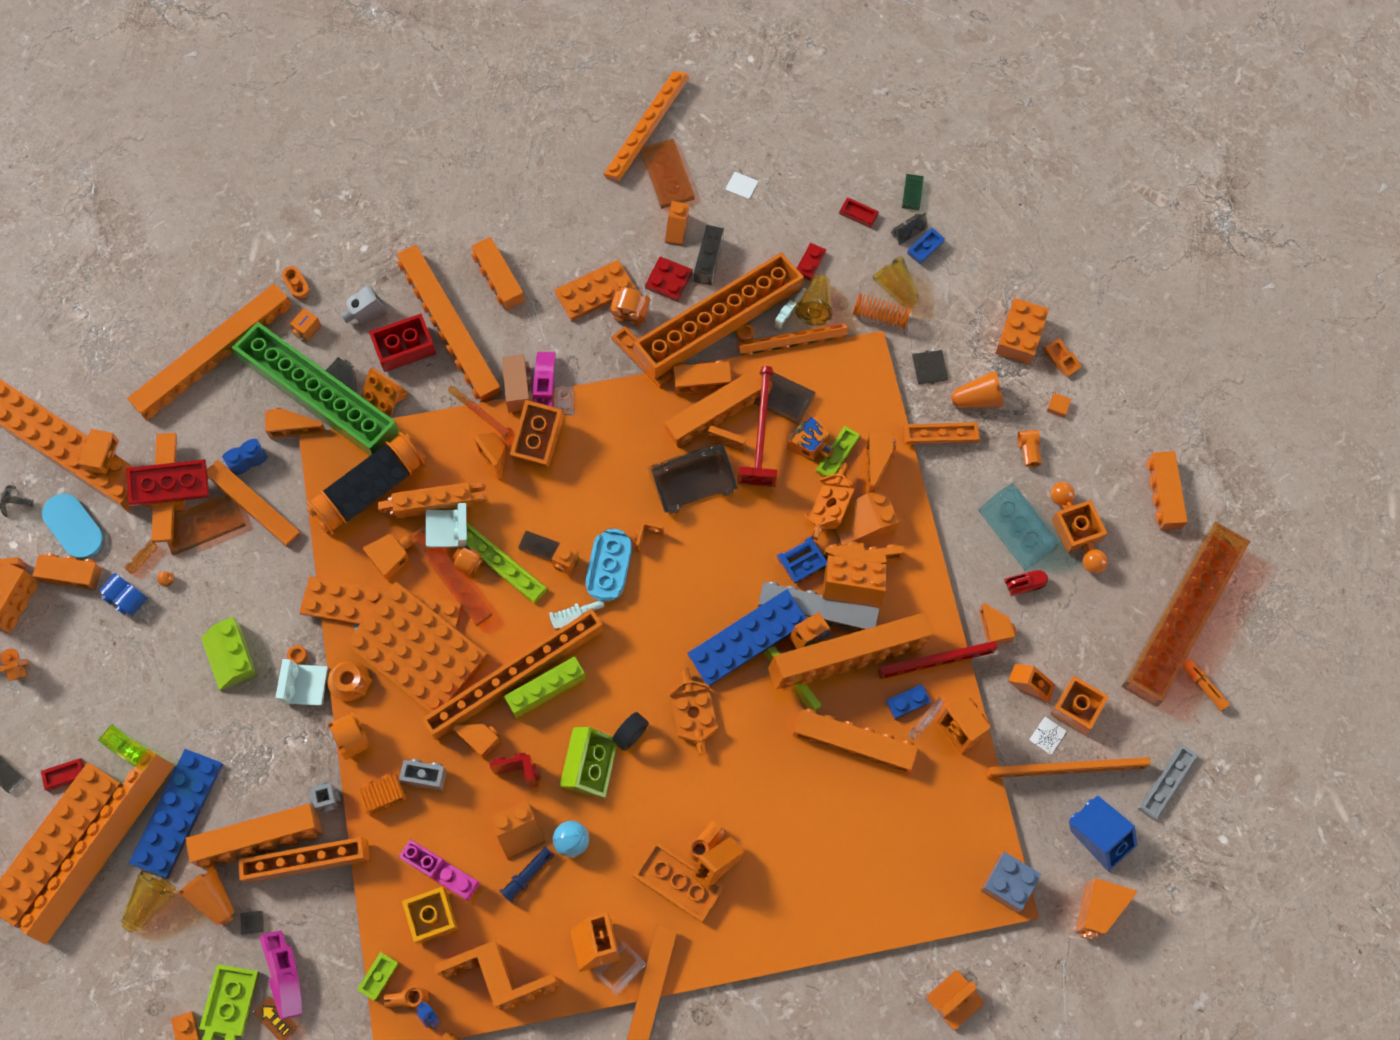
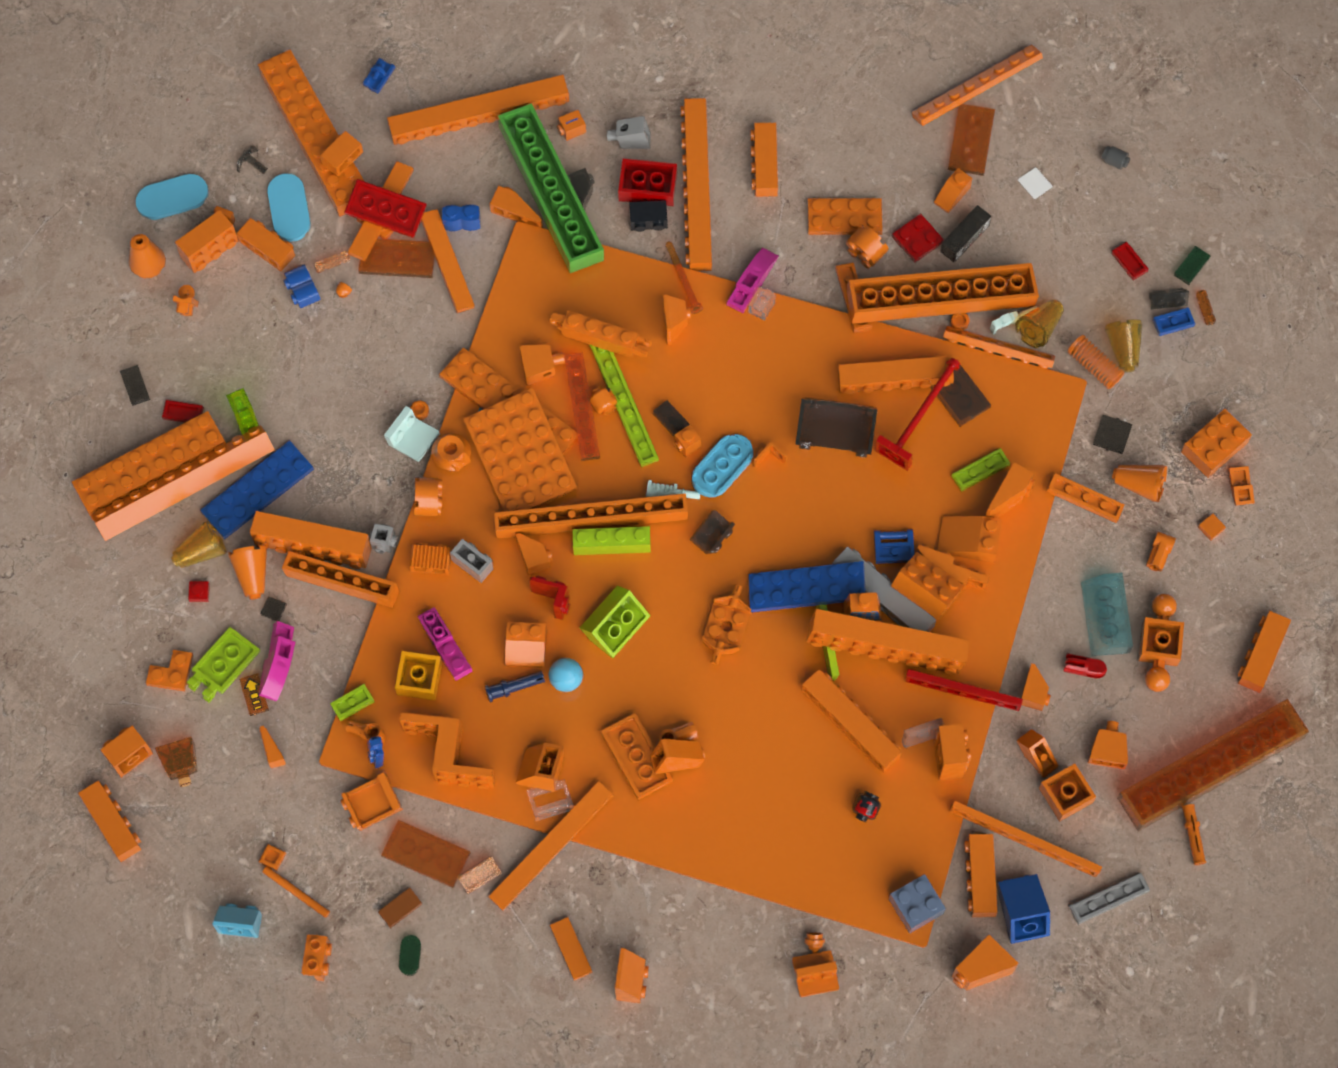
camera: 30 degrees right, 0 degrees up
(99, 364) = (378, 75): none -> blue hips
(167, 944) = (198, 591): none -> red plate
(228, 654) = (363, 380): lime slope -> none
(295, 284) = (583, 84): orange plate -> none
(366, 483) = (551, 290): black brick -> none
(382, 391) = (607, 218): orange bracket -> none
(419, 372) = (648, 215): none -> black brick
(446, 528) = (599, 363): light aqua bracket -> none
(516, 382) = (728, 267): nougat brick -> none
(537, 433) = (721, 320): orange brick -> none
(630, 731) = (663, 612): black tyre -> none
(634, 632) = (712, 533): none -> clear smoke bracket
(701, 377) = (895, 341): orange brick -> none
(726, 438) = (887, 406): orange tile -> none
(798, 131) = (1116, 157): none -> dark grey brick
(810, 439) = (961, 444): torso -> none
(811, 260) = (1057, 284): red plate -> none
(834, 489) = (958, 500): orange plate -> none
(908, 701) = (917, 712): blue plate -> none
(914, 815) = (866, 806): none -> head
(936, 968) = (814, 941): none -> orange plate
(944, 221) = (1205, 307): none -> clear orange axle
(1048, 735) = (1026, 805): white sticker -> none
(1049, 822) = (981, 875): none -> orange brick
(1090, 644) = (1110, 747): none -> orange torso

